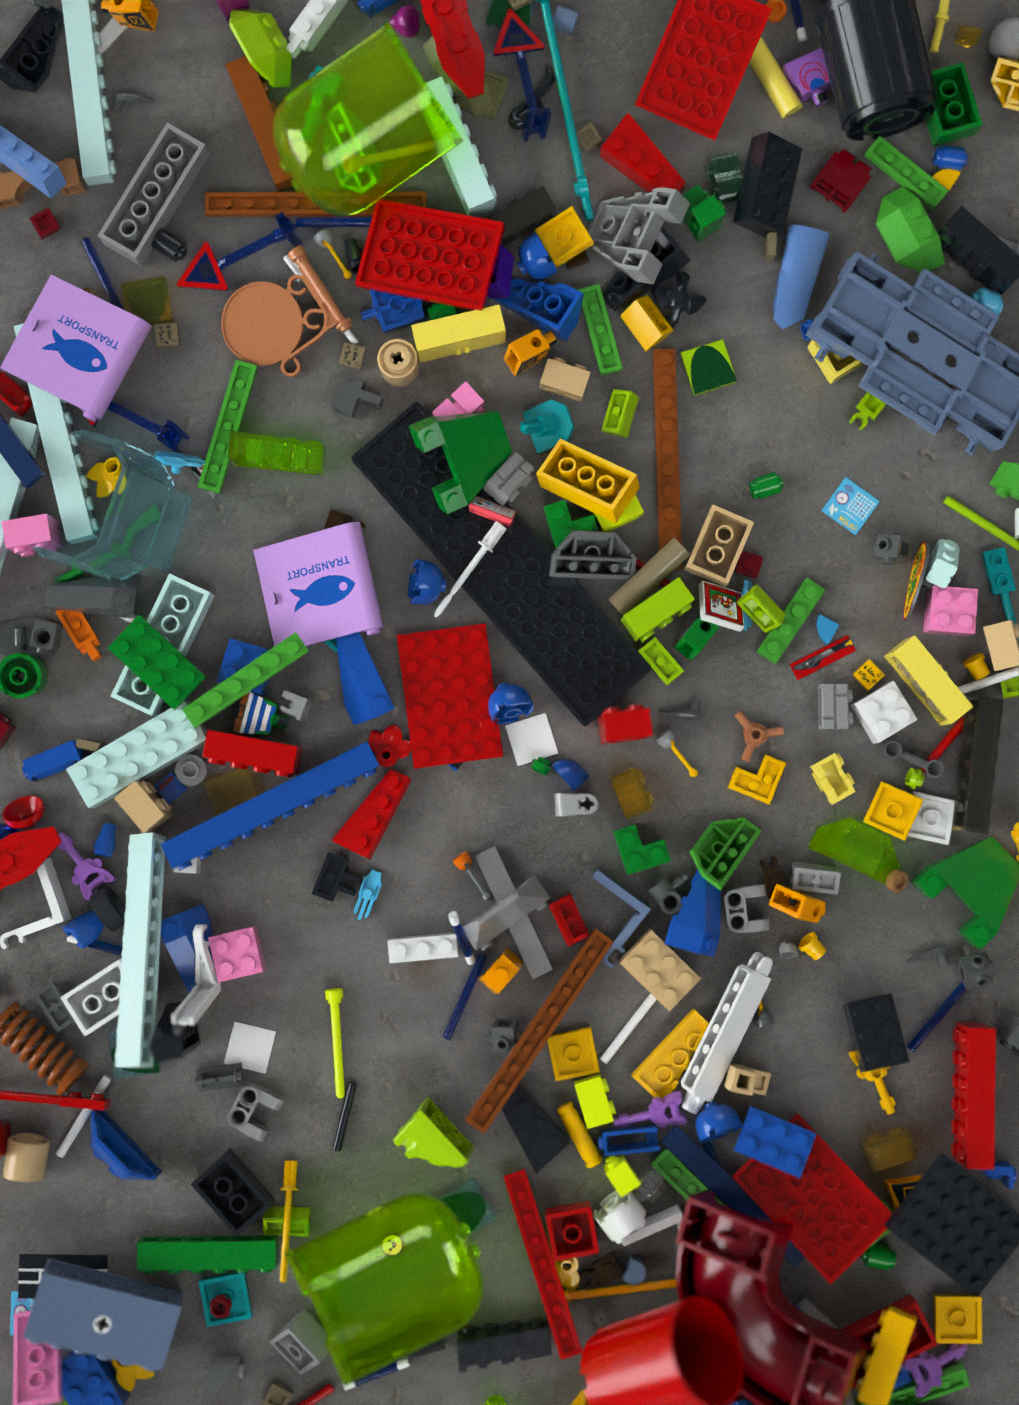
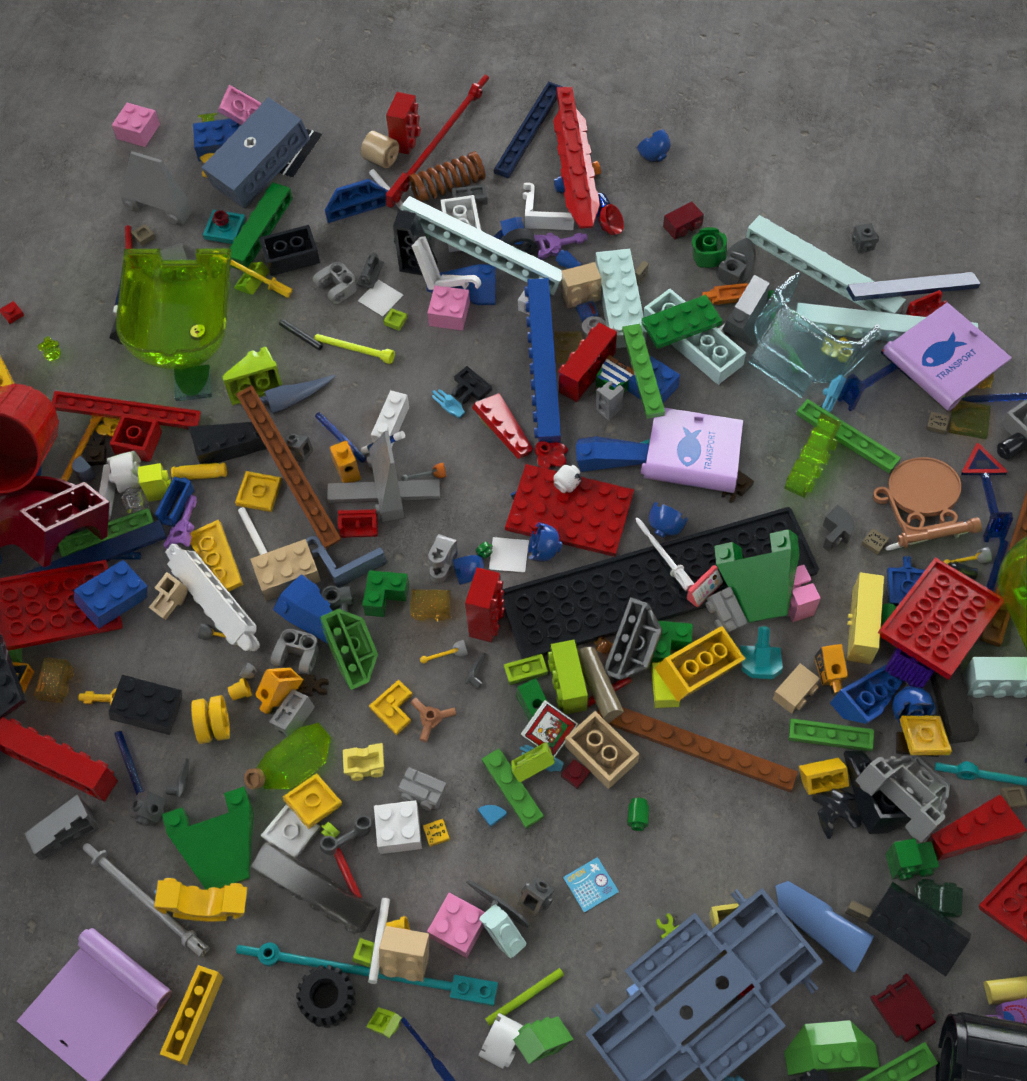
camera: 115 degrees right, 25 degrees down
(32, 531) = (810, 282): bright pink brick -> none
(52, 761) = (639, 246): blue window -> none
(278, 1011) = (395, 319): none -> lime plate
(403, 372) = (853, 561): tan piece -> none
(422, 709) = (567, 478): none -> white head
(436, 1084) = (288, 395): none -> sand blue piece
(502, 1343) = (93, 362): black wedge -> none
(593, 1100) = (216, 489): neon yellow brick -> none
(599, 592) = (603, 645): none -> clear orange plate
(620, 413) = (750, 724): lime slope -> none
(708, 367) = (764, 812): dark green tile -> none
(716, 1121) = (152, 563): blue cylinder -> none
(822, 657) = (469, 803): red sticker -> none
(863, 955) = (210, 719): none -> yellow wheel
(928, 681) = (405, 872): light yellow brick -> none

